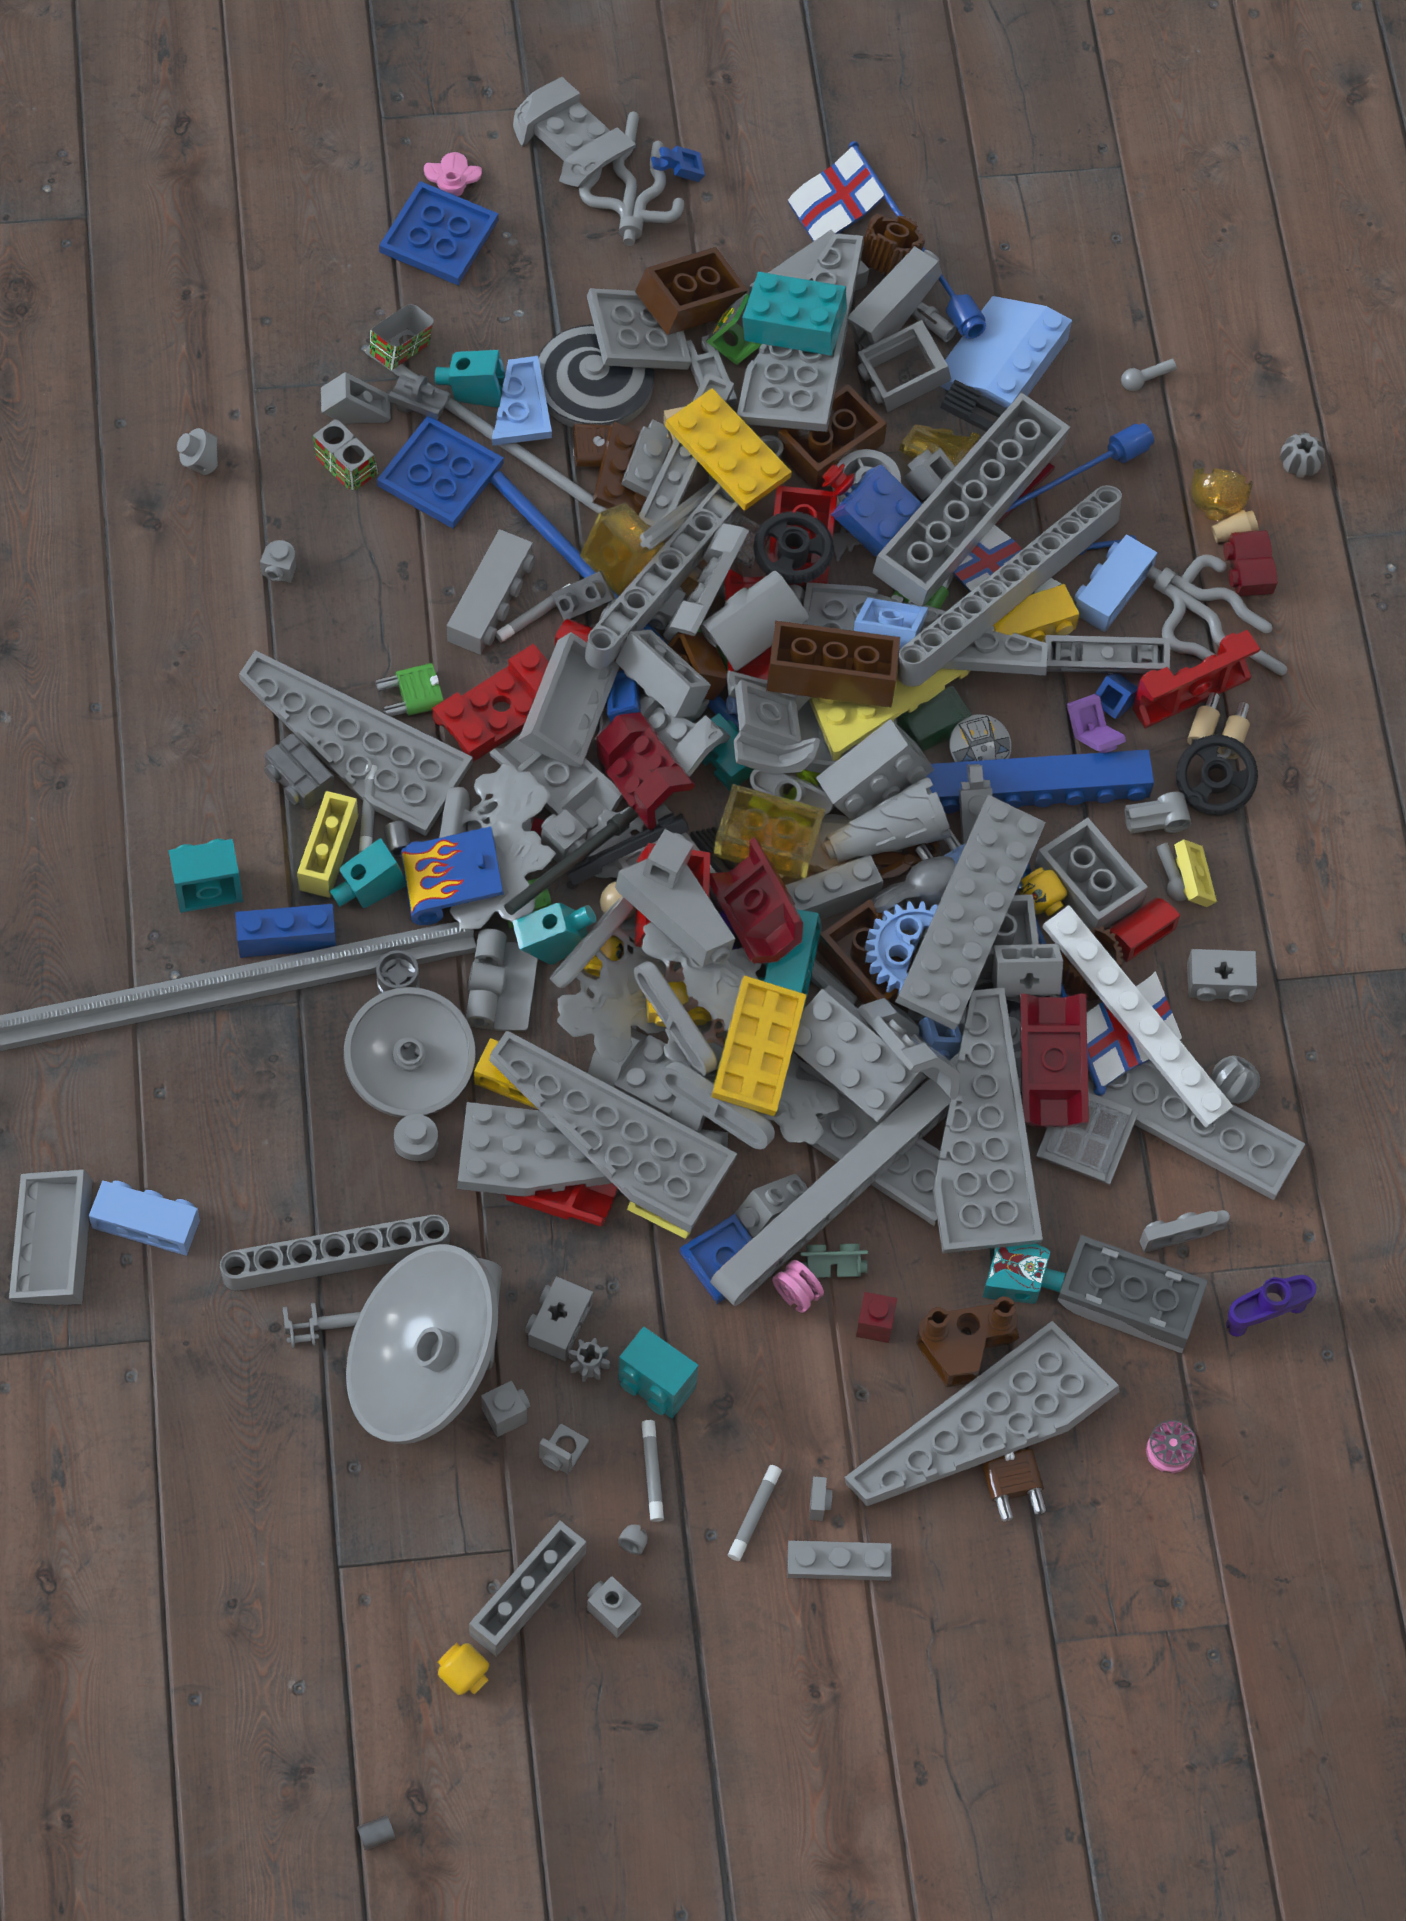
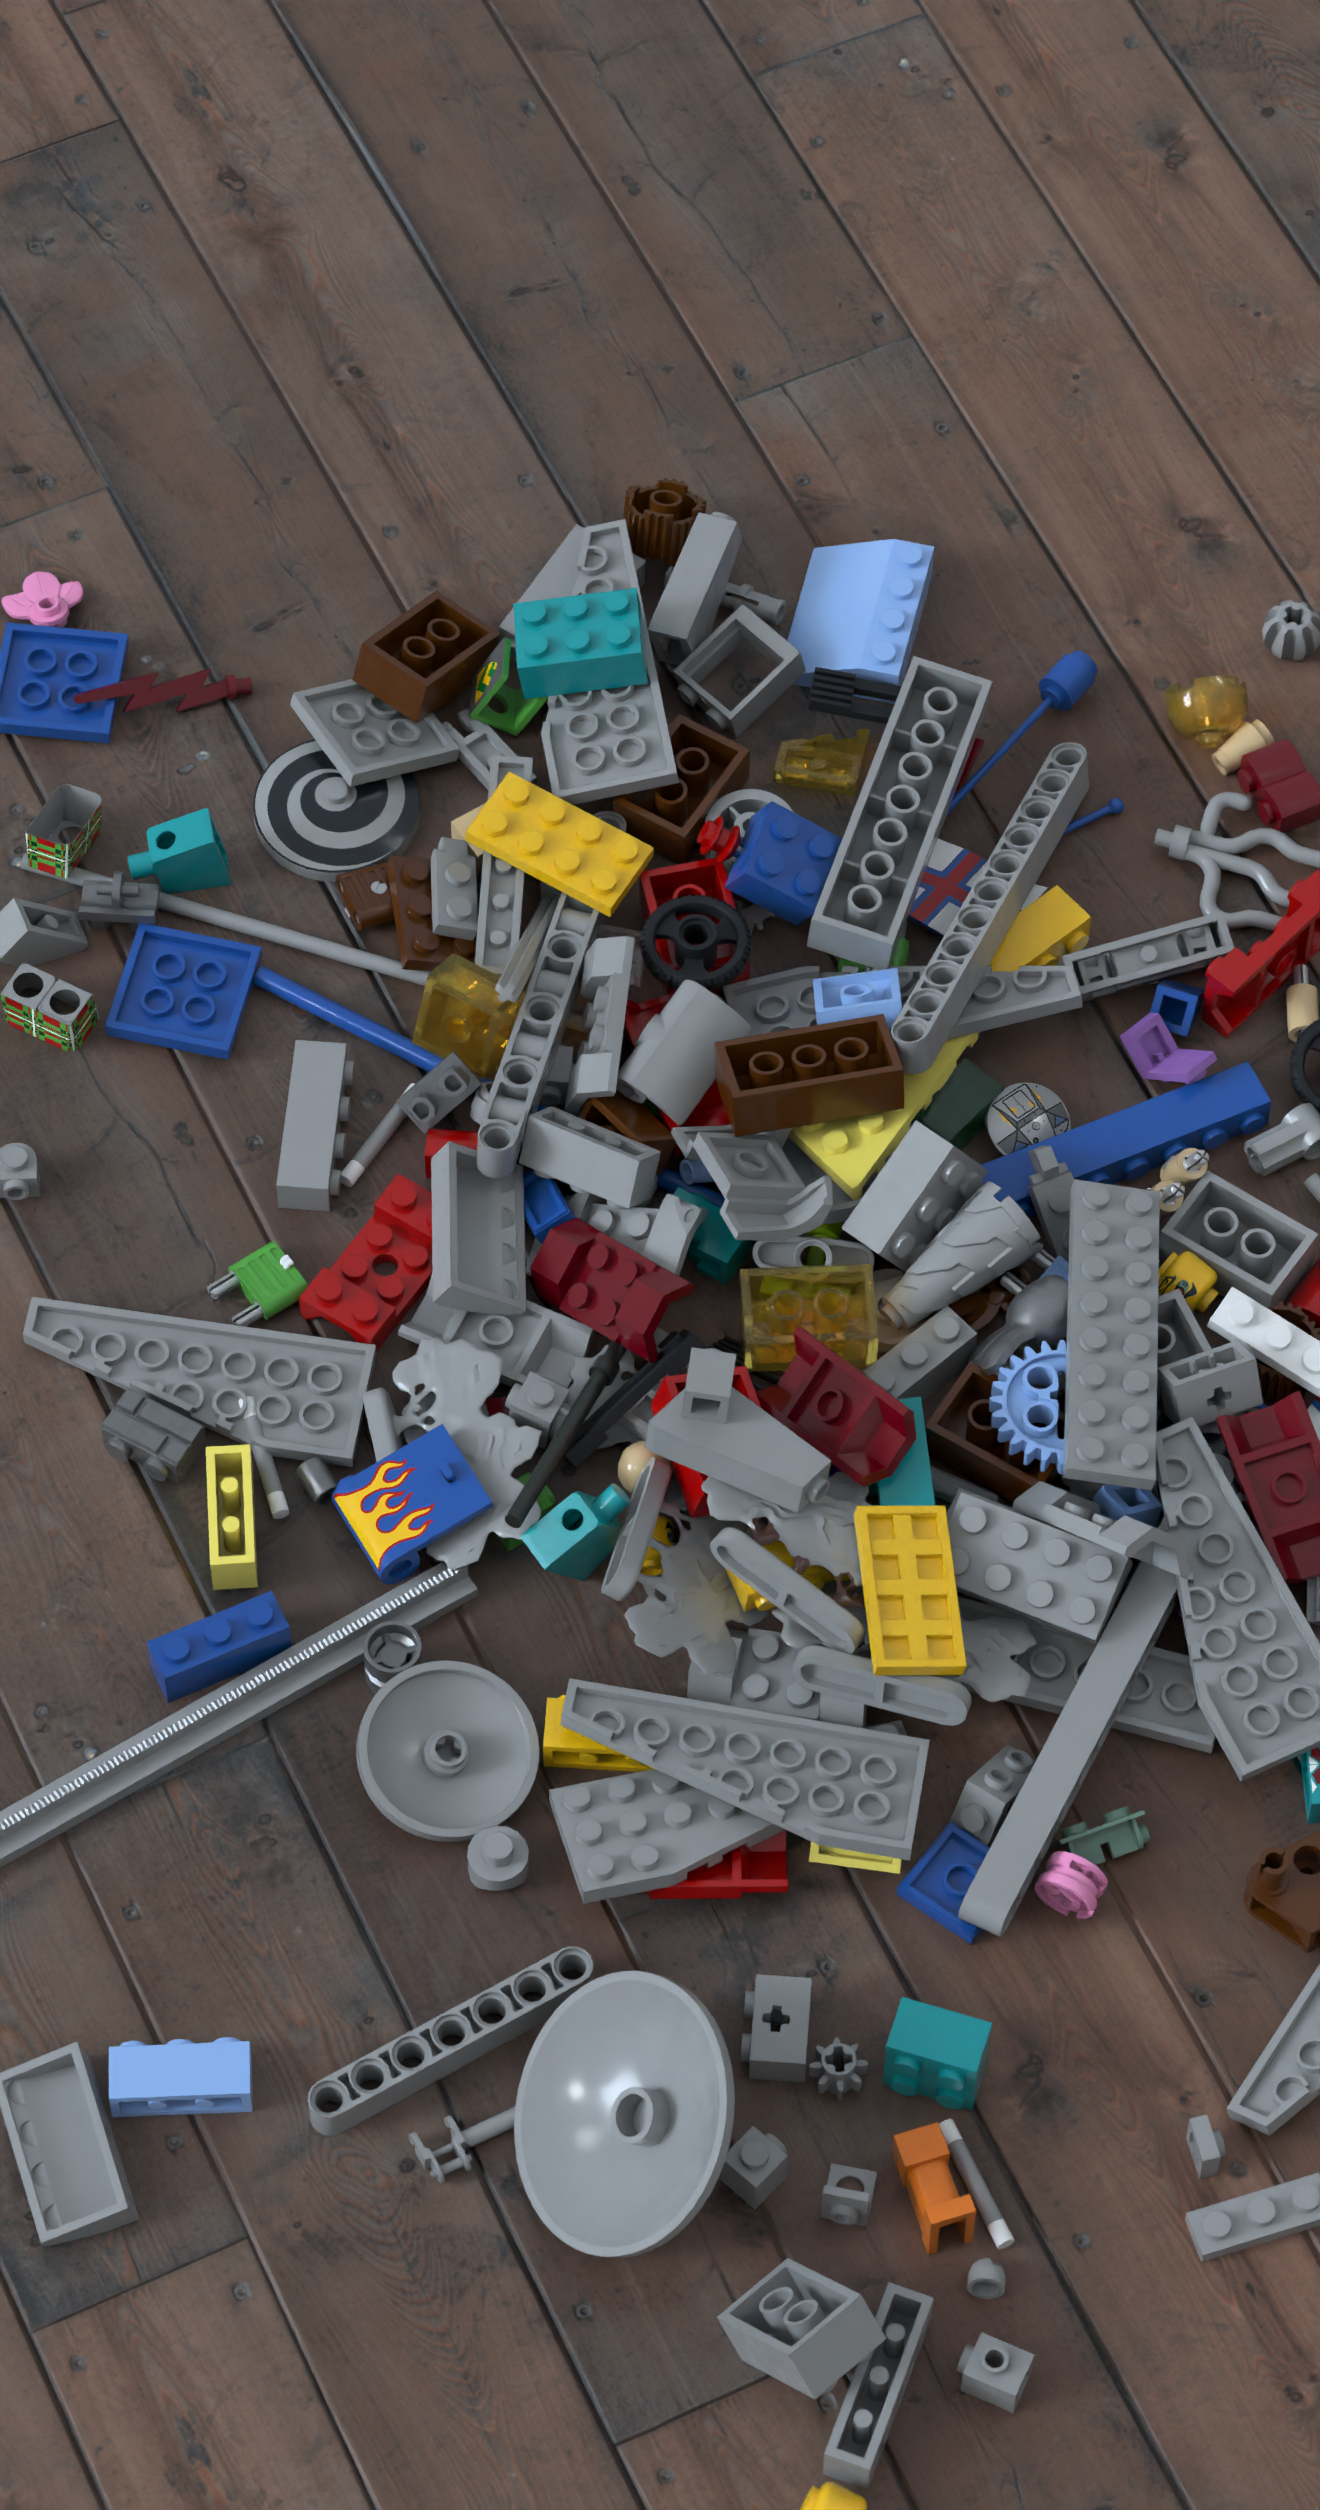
camera: 15 degrees left, 5 degrees down
(206, 875) = (87, 1607): teal brick -> none
(369, 876) = (304, 1540): teal torso -> none
(487, 1532) = (802, 2328): none -> light grey brick
(500, 984) = (529, 1624): light grey panel -> none
(523, 404) = (260, 870): light blue wing -> none
(525, 261) = (190, 685): none -> dark red piece
(569, 131) = (180, 500): light grey piece -> none
(620, 1456) = (923, 2169): none -> orange piece
(633, 215) = (306, 583): light grey plant -> none
(684, 162) = (345, 494): blue plate -> none
(754, 1513) = (1127, 2193): light grey bar -> none
(845, 196) = (573, 476): flag -> none
(876, 1317) = (1186, 1891): dark red brick -> none
(928, 472) = (828, 796): light grey brick -> none
(1068, 814) = (1176, 1175): none -> piece
(1114, 582) = (1117, 863): light blue brick -> none
(1134, 379) = (1037, 599): light grey bar -> none

